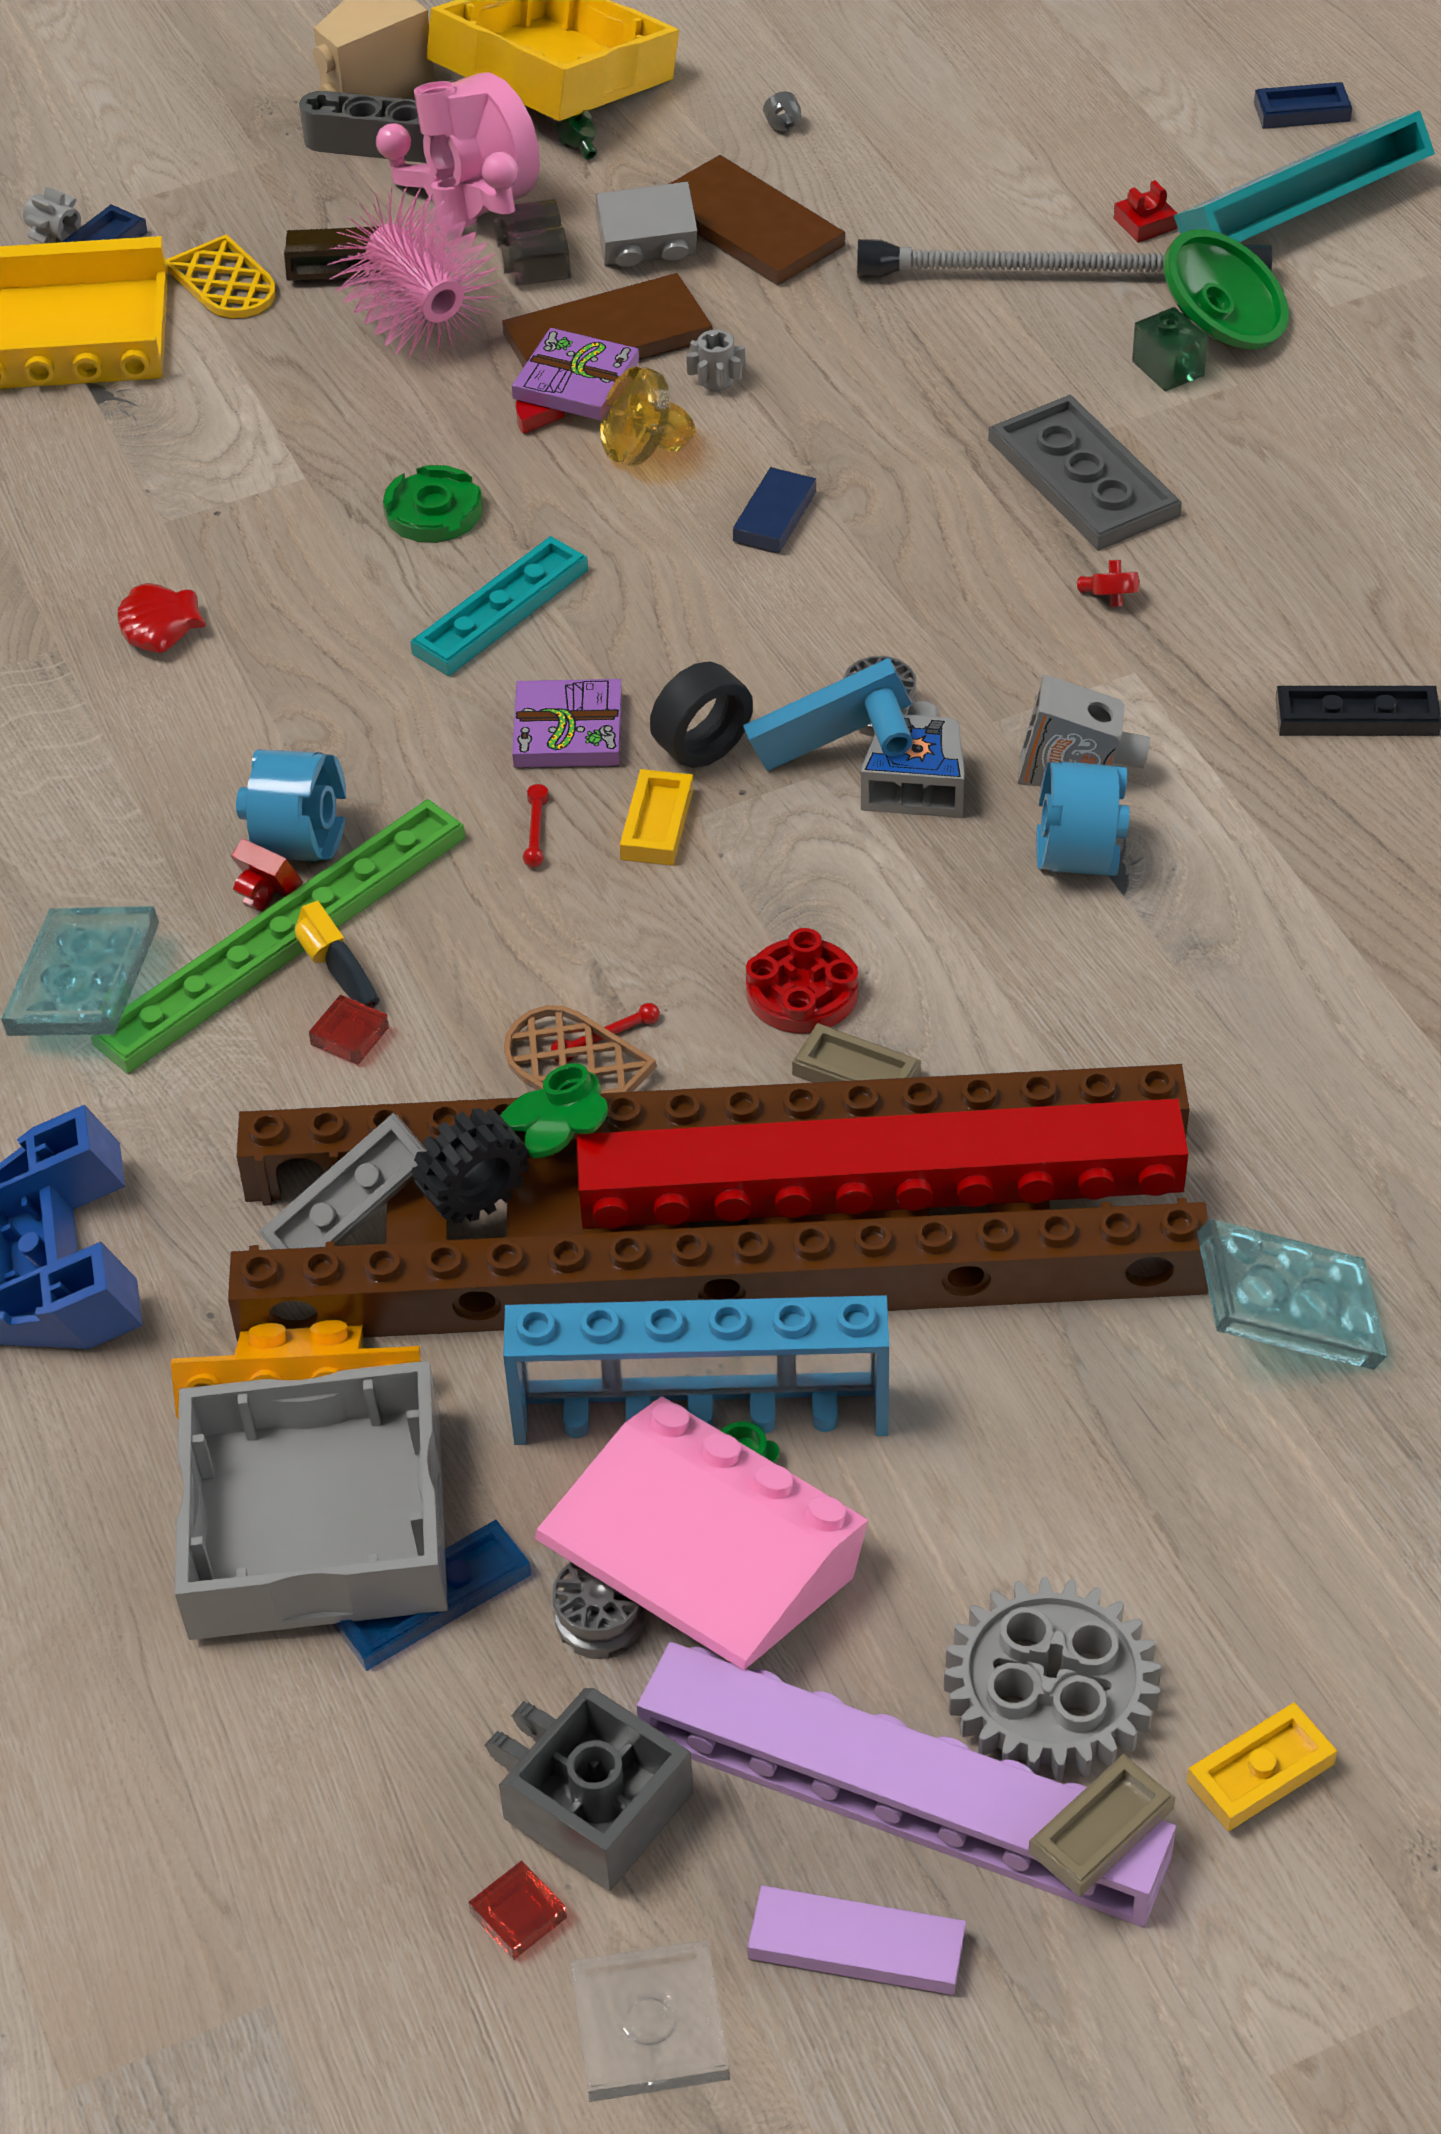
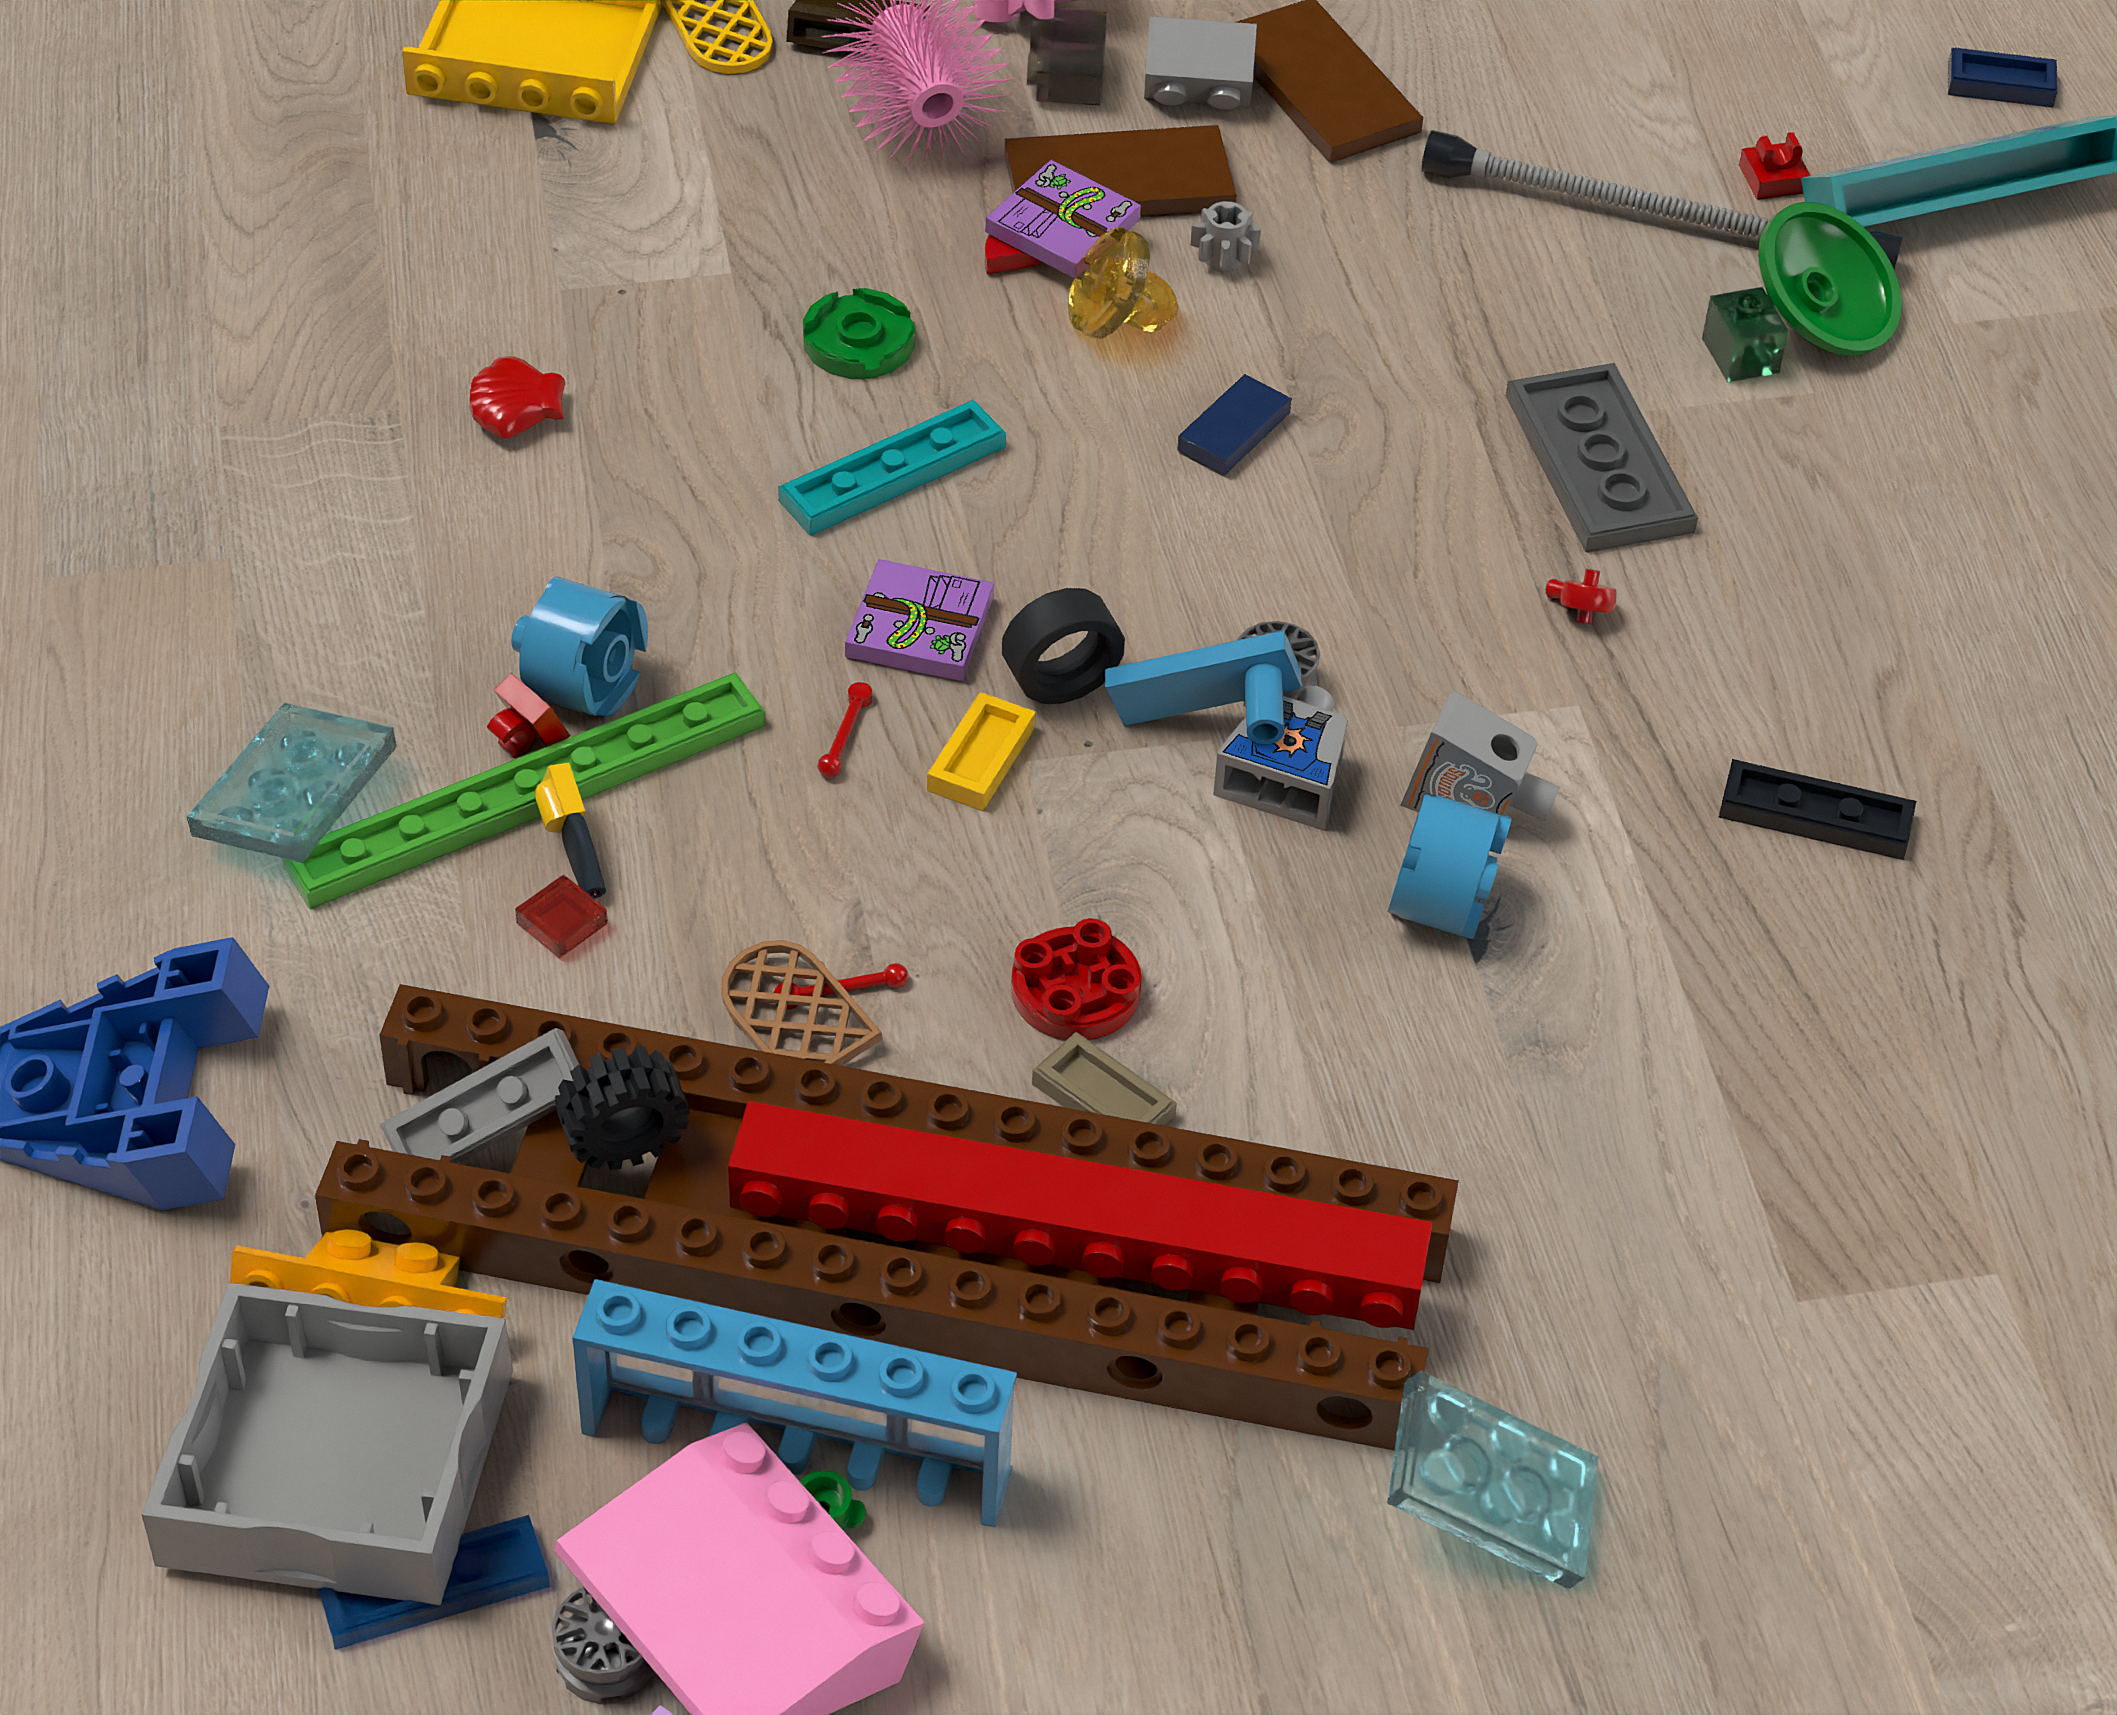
camera: 10 degrees right, 0 degrees up
(554, 1114) = (737, 1068): green plate -> none

